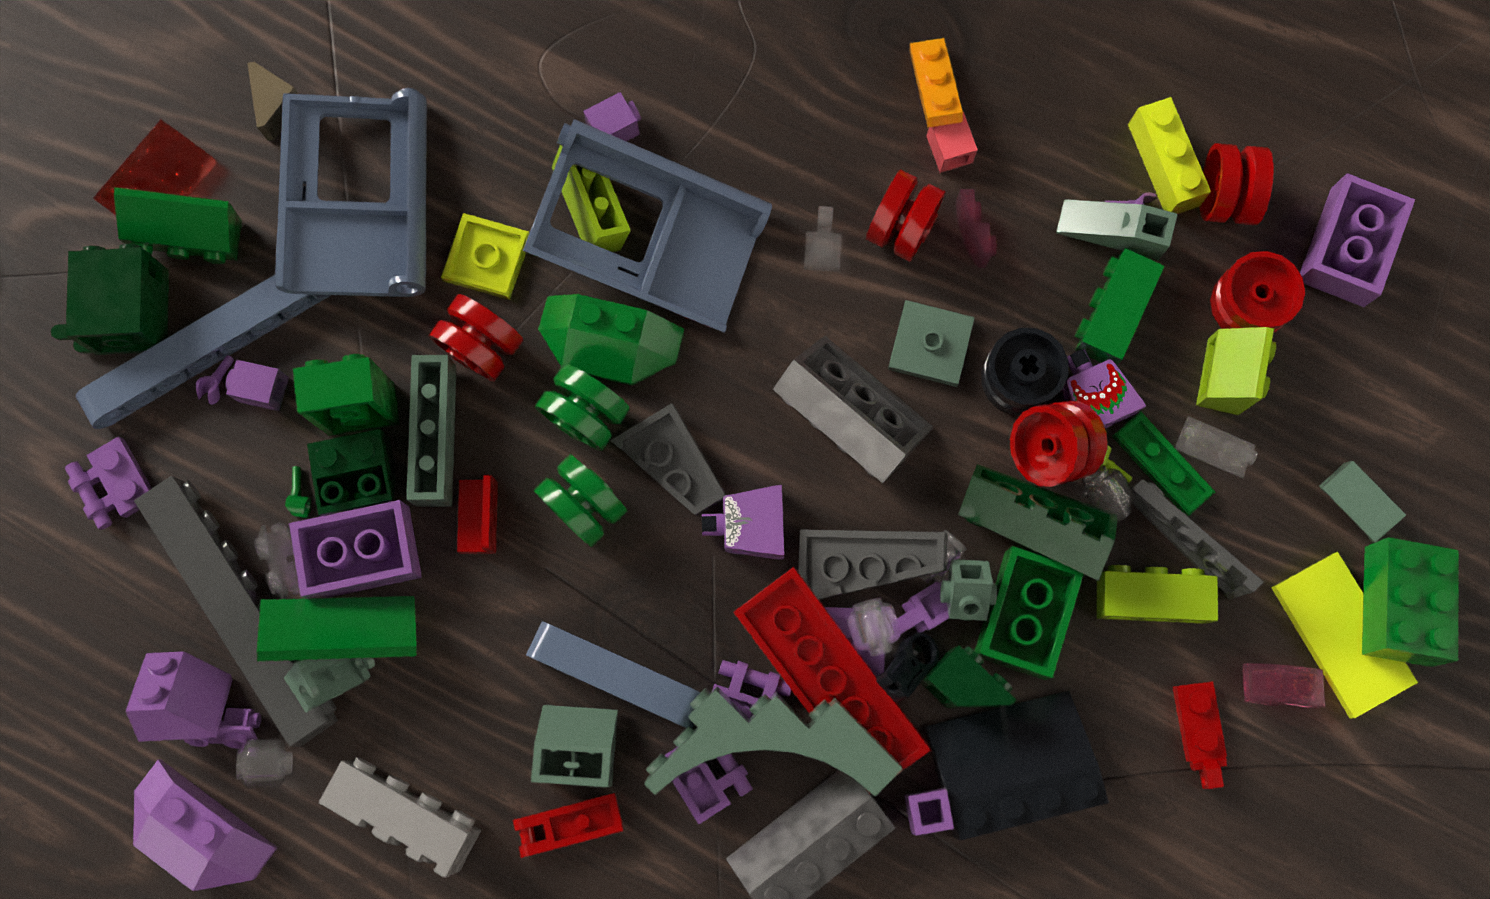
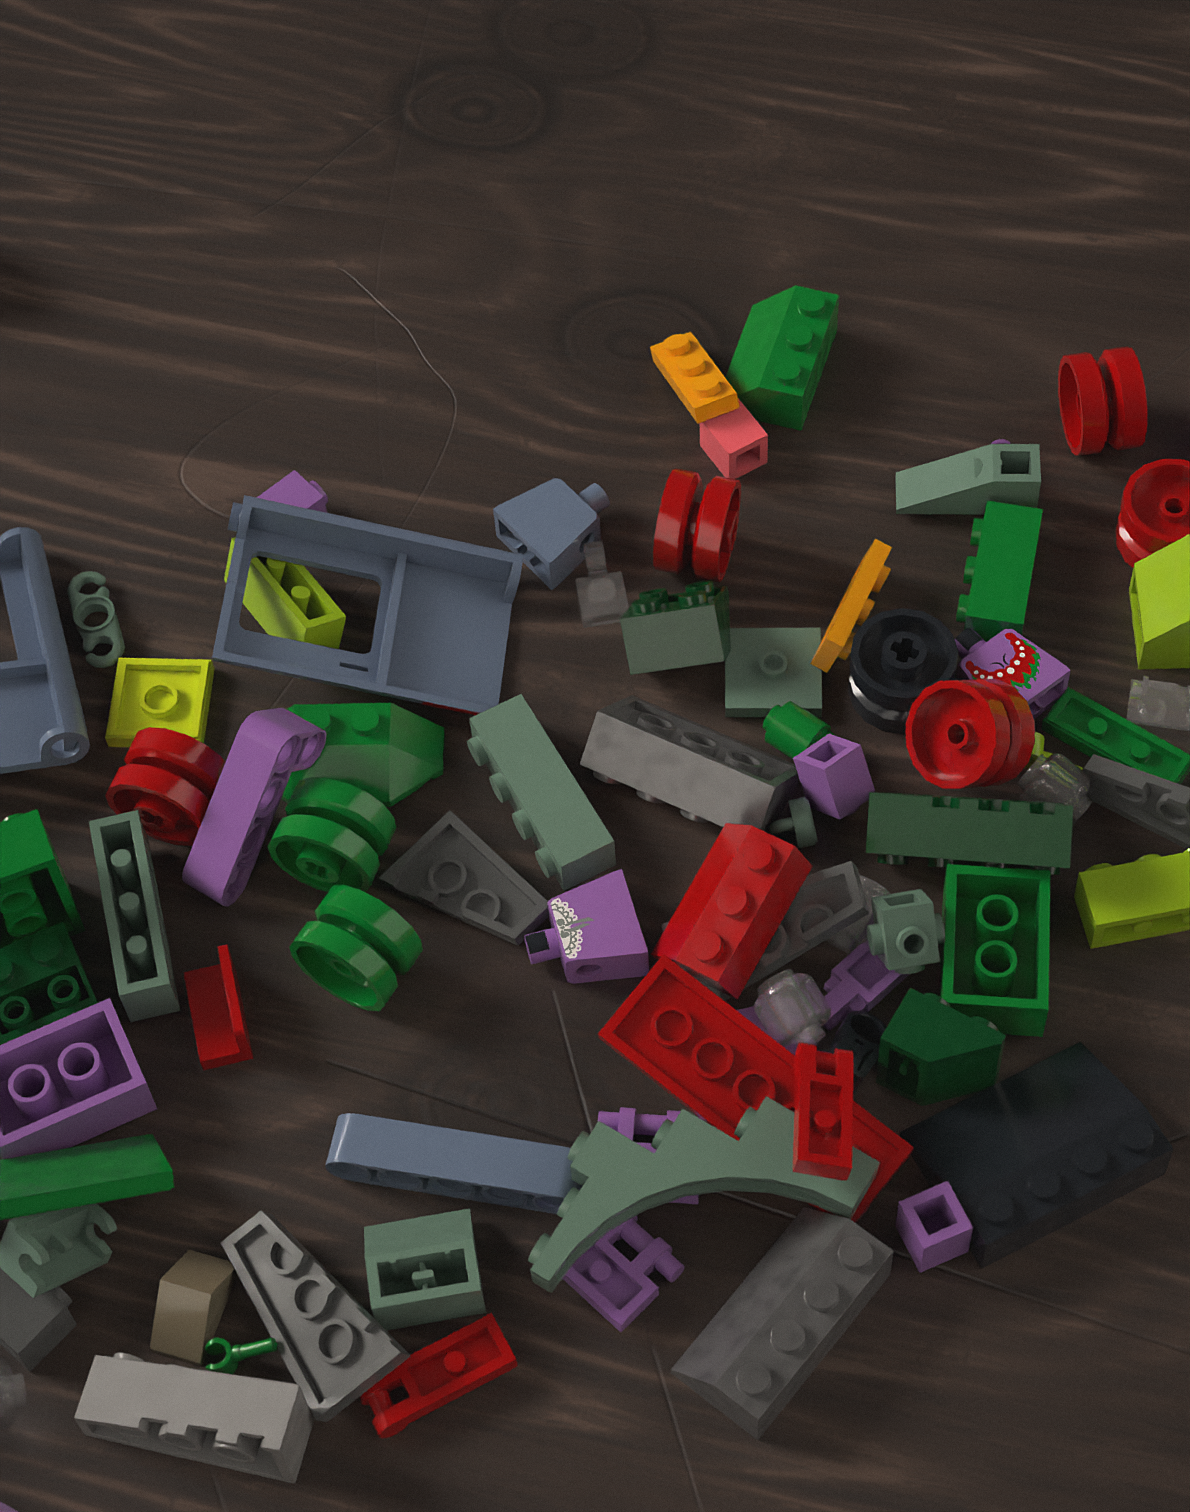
camera: 10 degrees left, 20 degrees down
(417, 729) = (191, 1306): none -> dark tan slope
(440, 775) = (236, 1353): none -> green hand
(460, 188) = (108, 632): none -> sand green piece
(491, 764) = (318, 1325): none -> dark grey wing
(530, 363) = (246, 799): none -> medium lavender beam
(741, 402) = (541, 792): none -> sand green brick
(800, 184) = (551, 527): none -> sand blue torso
(849, 541) = (733, 907): none -> red slope
(870, 295) = (677, 628): none -> dark green slope
(872, 727) = (823, 1112): none -> red plate
(917, 473) = (799, 823): none -> sand green tile
(936, 402) = (793, 729): none -> green brick
(952, 447) = (834, 776): none -> medium lavender brick
(974, 234) = (790, 530): clear pink slope -> none
(1002, 309) = (853, 607): none -> light orange plate
(1006, 76) = (784, 354): none -> green slope
(1169, 156) = (1011, 393): neon yellow brick -> none

